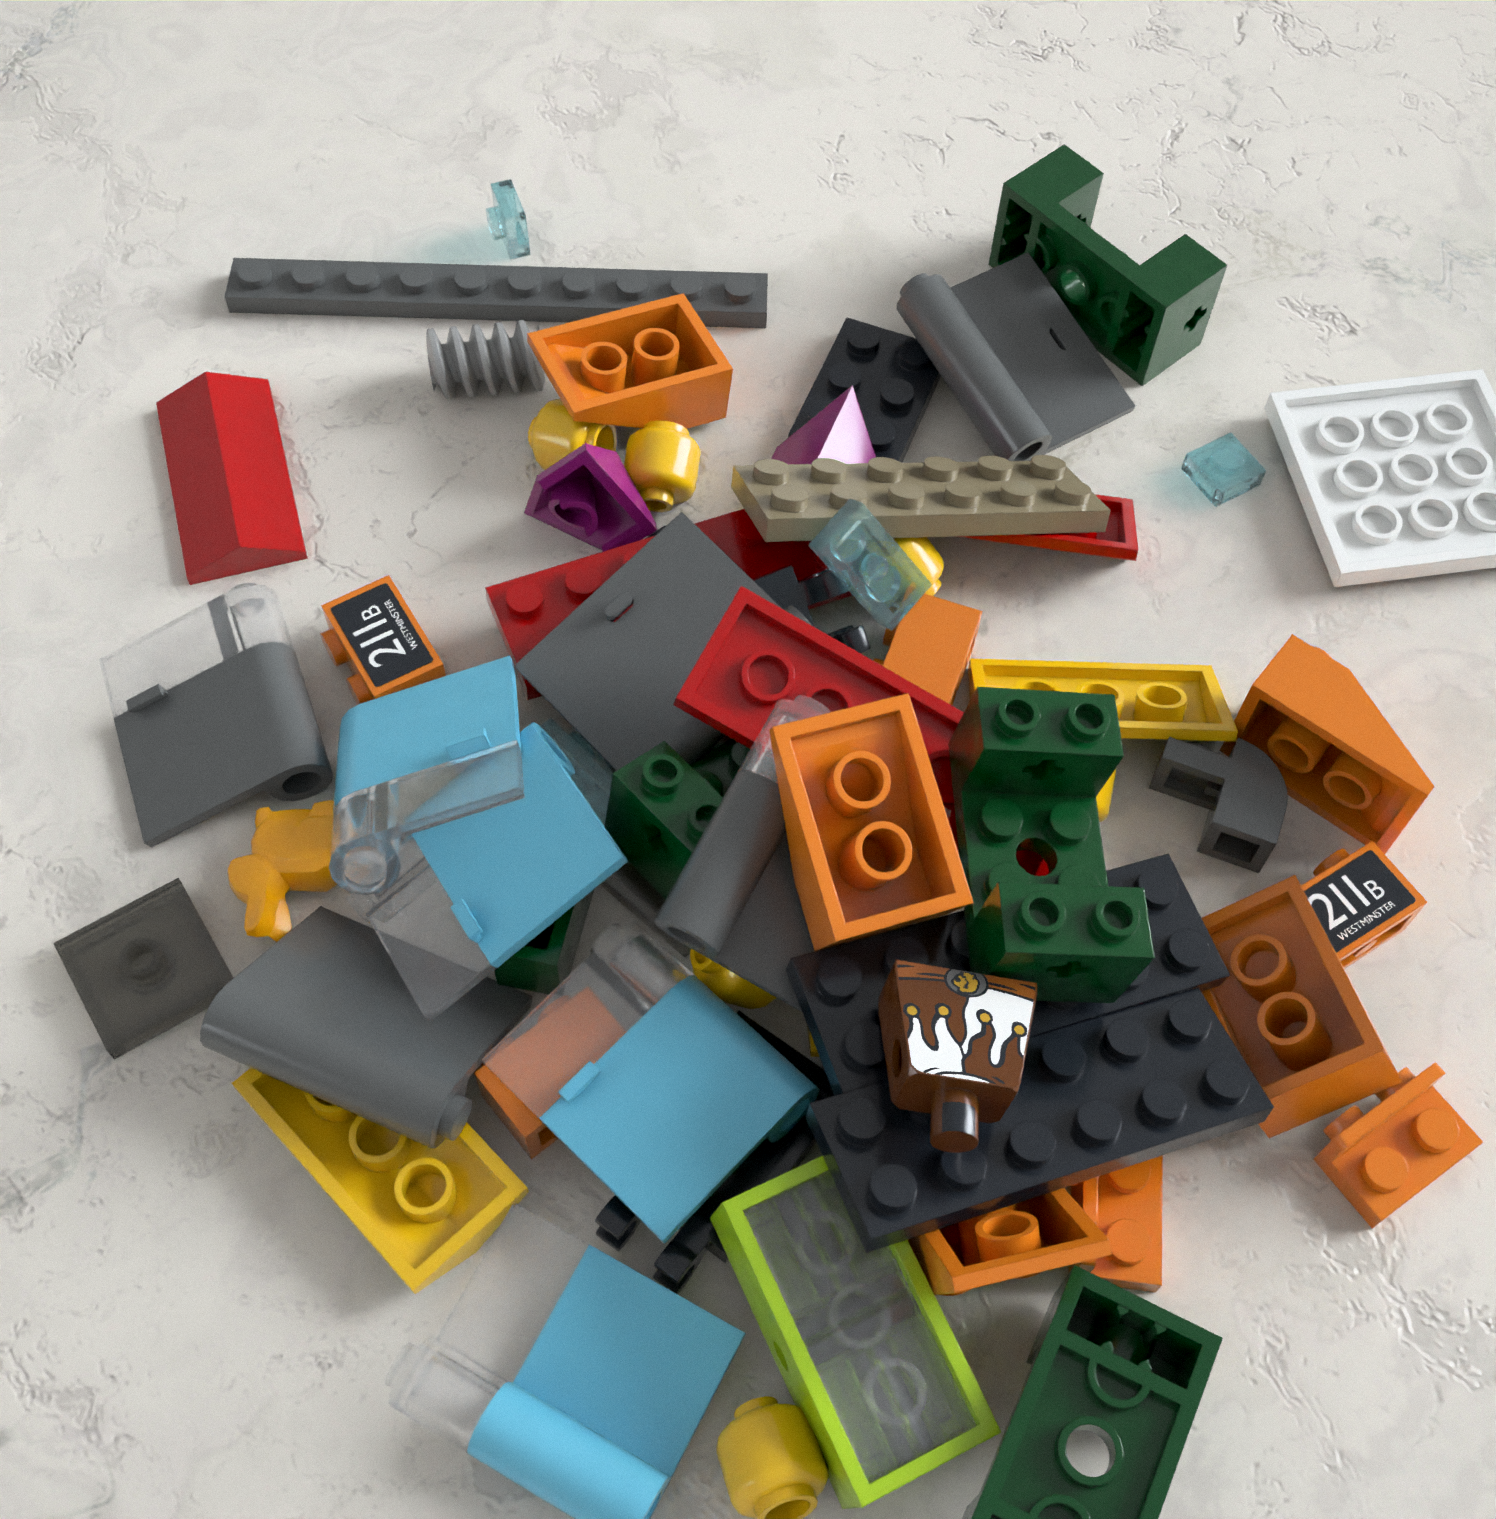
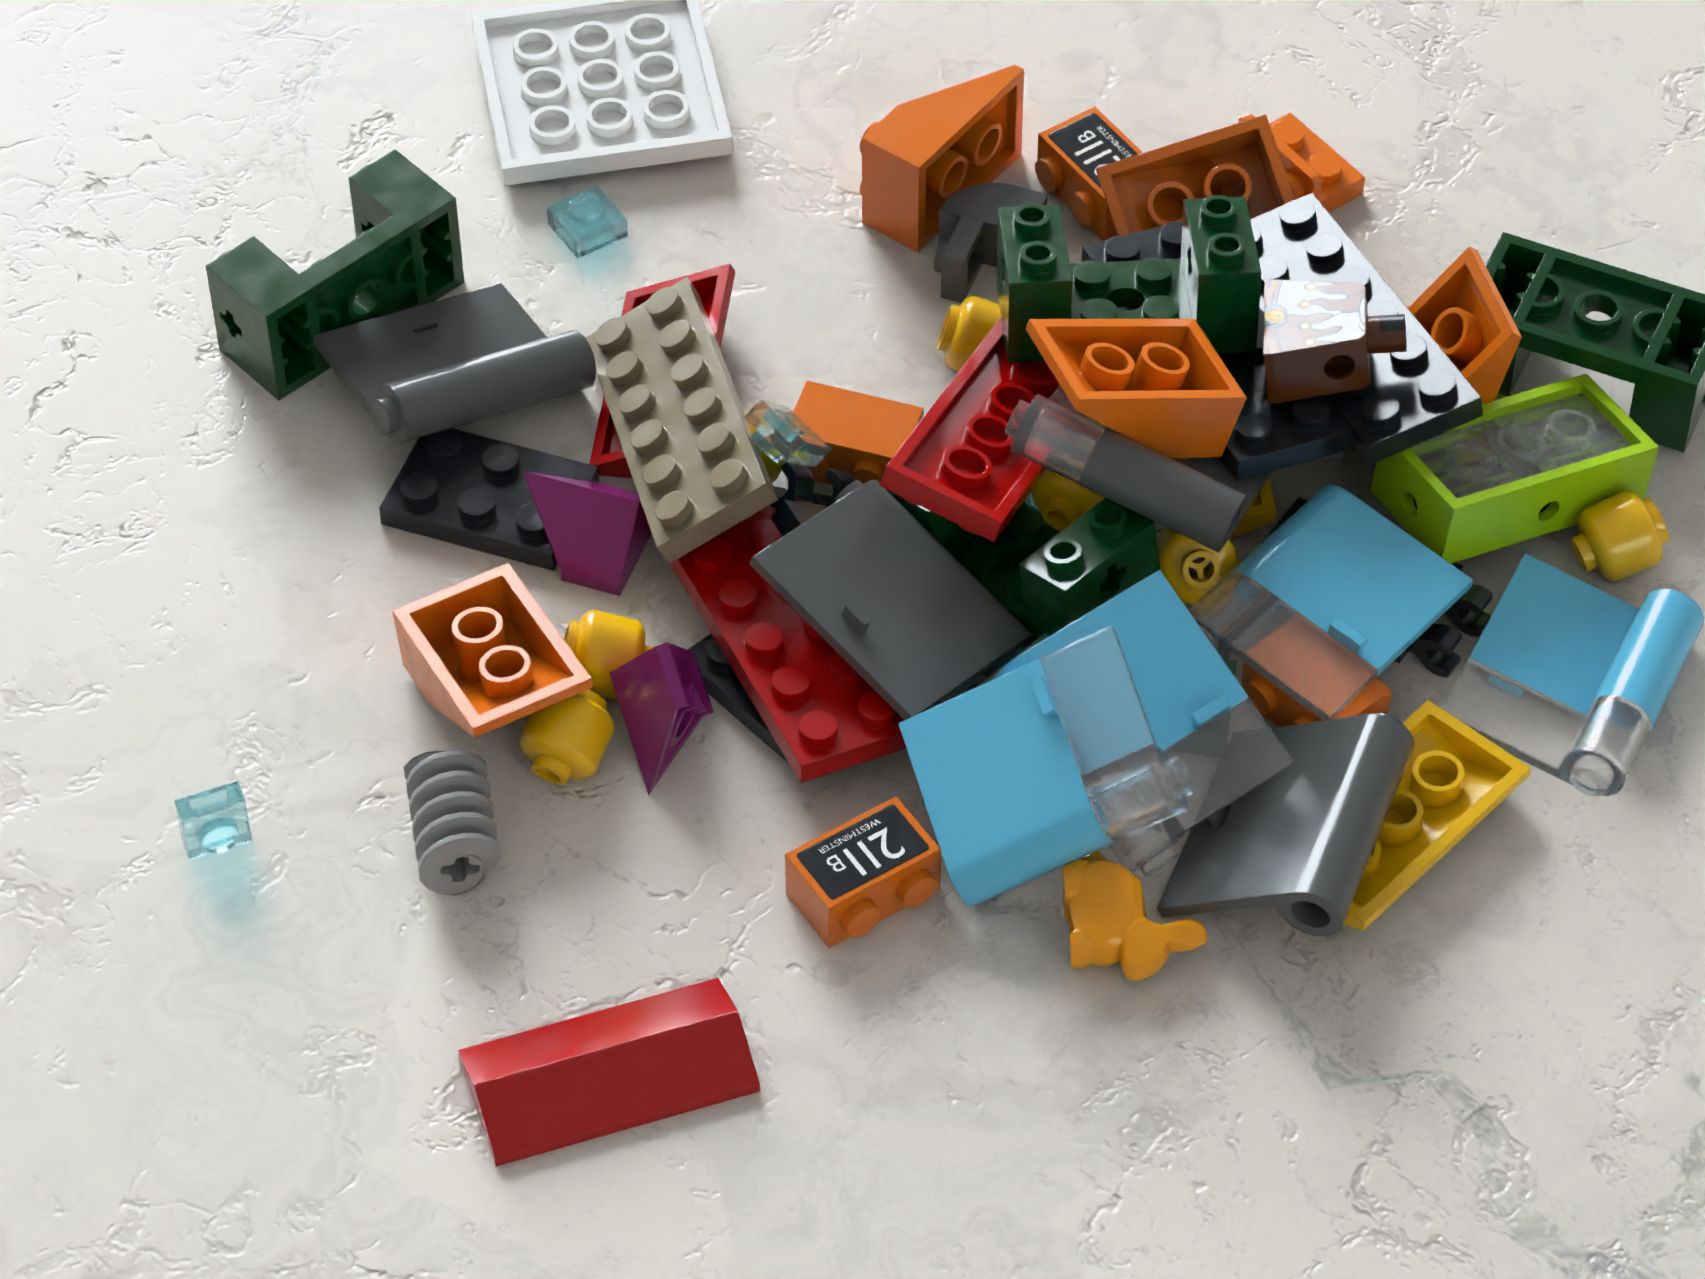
camera: 90 degrees left, 10 degrees down
(144, 967) = (1240, 1037): clear smoke plate -> none
(214, 713) = (946, 1020): dark grey door -> none
(485, 291) = (318, 852): dark grey plate -> none
(1149, 698) = (889, 312): yellow slope -> none

